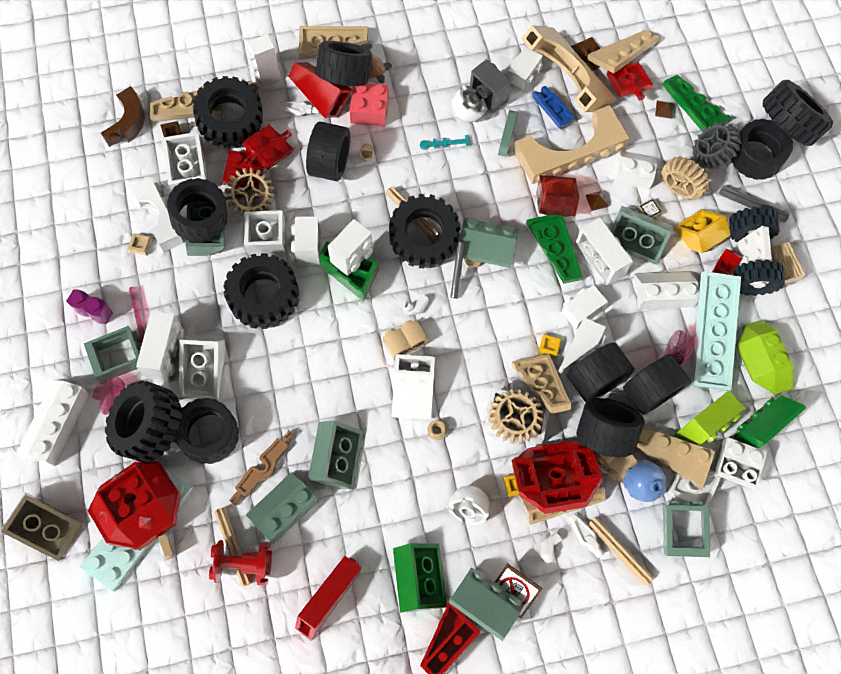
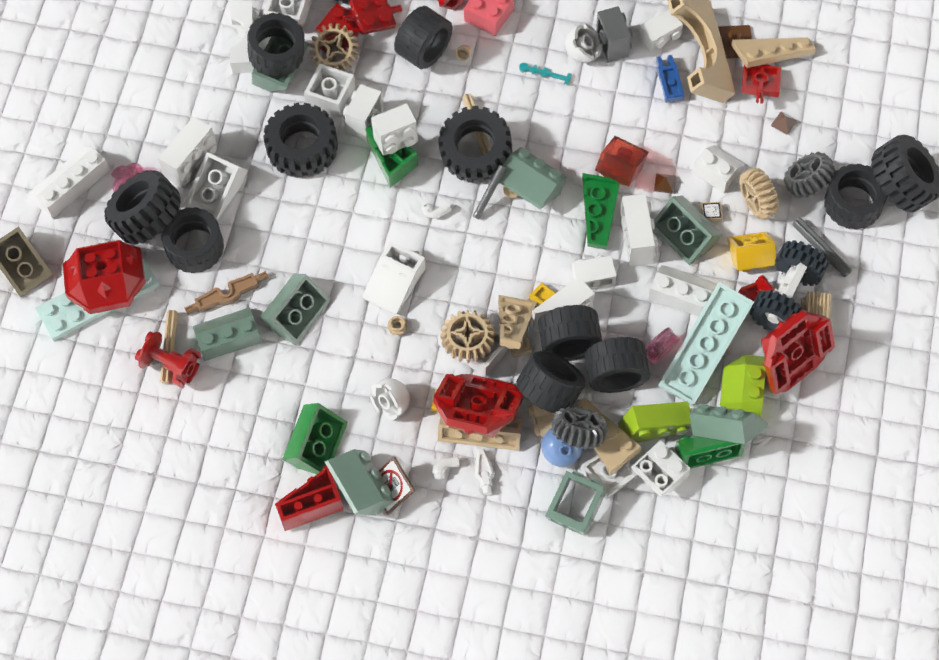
camera: 30 degrees right, 5 degrees down
(89, 306) = (145, 95): magenta brick -> none
(94, 346) = (134, 130): sand green window -> none
(137, 312) = (185, 111): clear pink bar -> none
(140, 244) = (215, 58): tan tile -> none
(165, 547) = (112, 321): tan tile -> none
(327, 597) = (225, 420): red slope -> none
(405, 339) = (410, 235): tan brick -> none
(507, 133) = (609, 86): sand green beam -> none
(607, 139) = (703, 129): tan arch -> none
(620, 551) = (508, 498): tan axle -> none
(660, 460) = (579, 427): none -> dark grey gear
(694, 104) = (816, 128): green wing -> none
(779, 400) = (725, 424): none -> sand green slope
(792, 303) = (796, 349): none -> red piece

